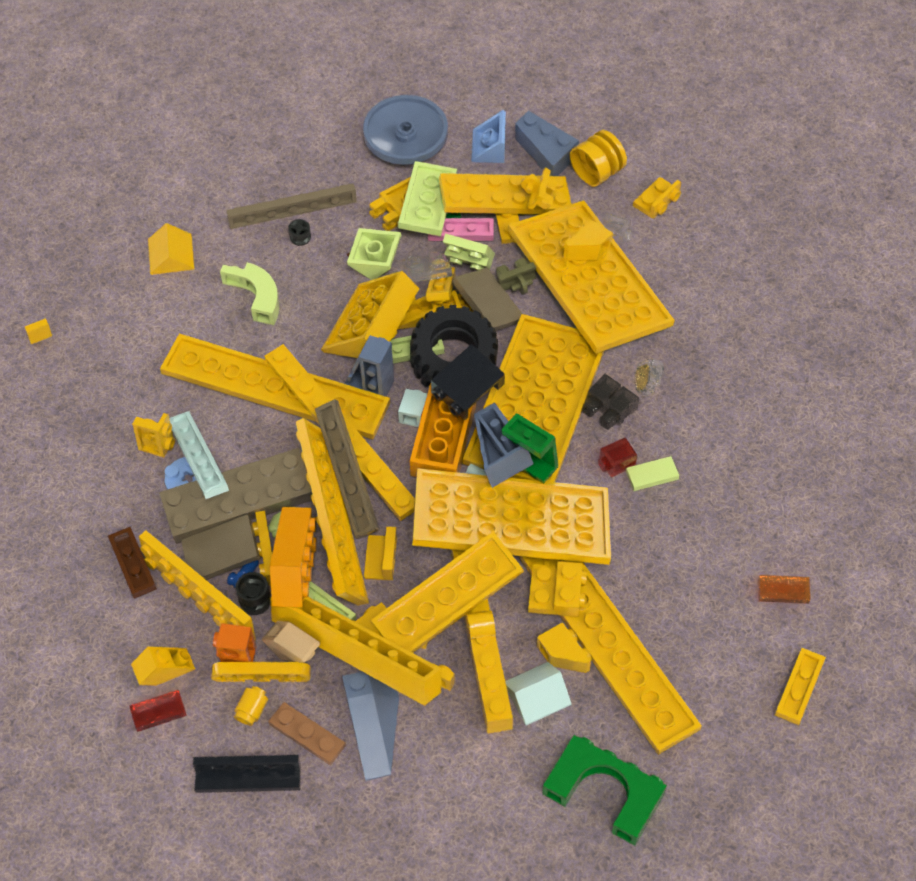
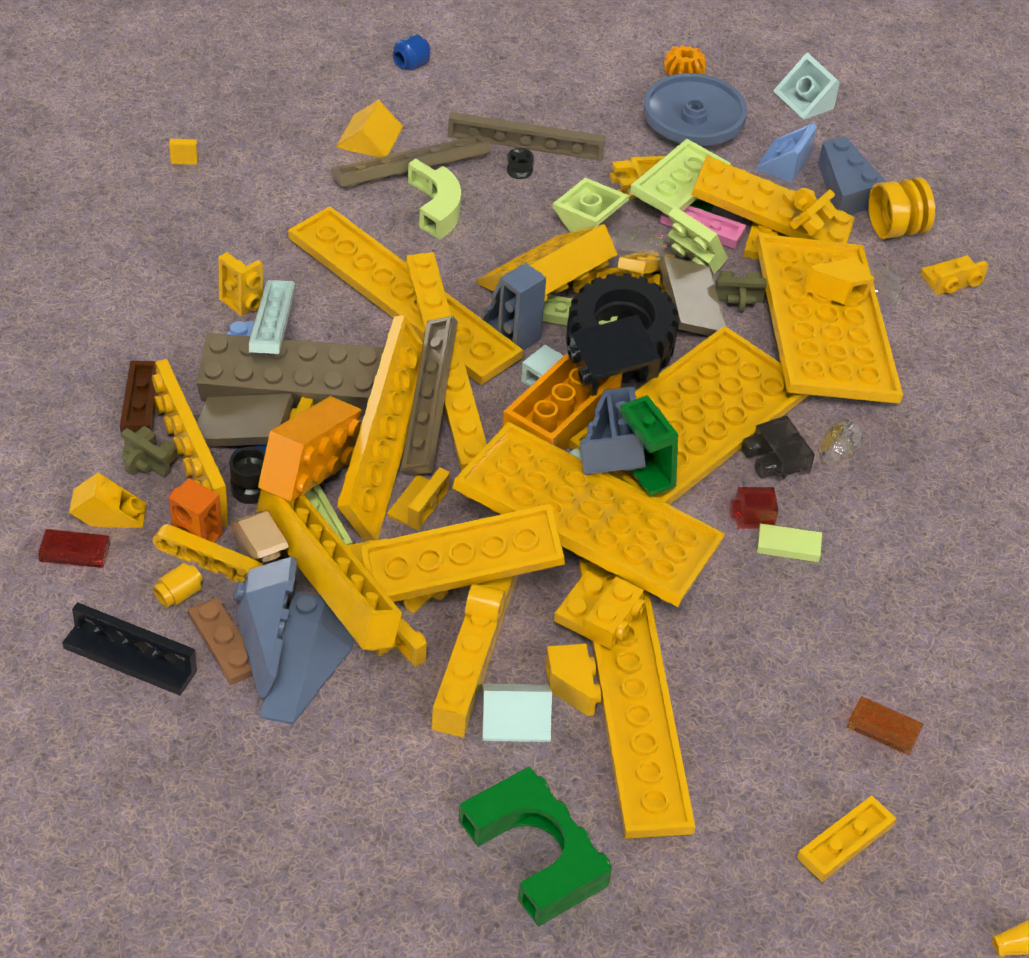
camera: 20 degrees right, 10 degrees down
(162, 163) = (411, 52): none -> blue head
(164, 611) = (143, 455): none -> olive hips
(210, 269) = (397, 164): none -> dark tan plate
(326, 701) = (263, 617): none -> sand blue wedge
(375, 88) = (684, 60): none -> light orange gear
(477, 74) = (808, 88): none -> light aqua slope

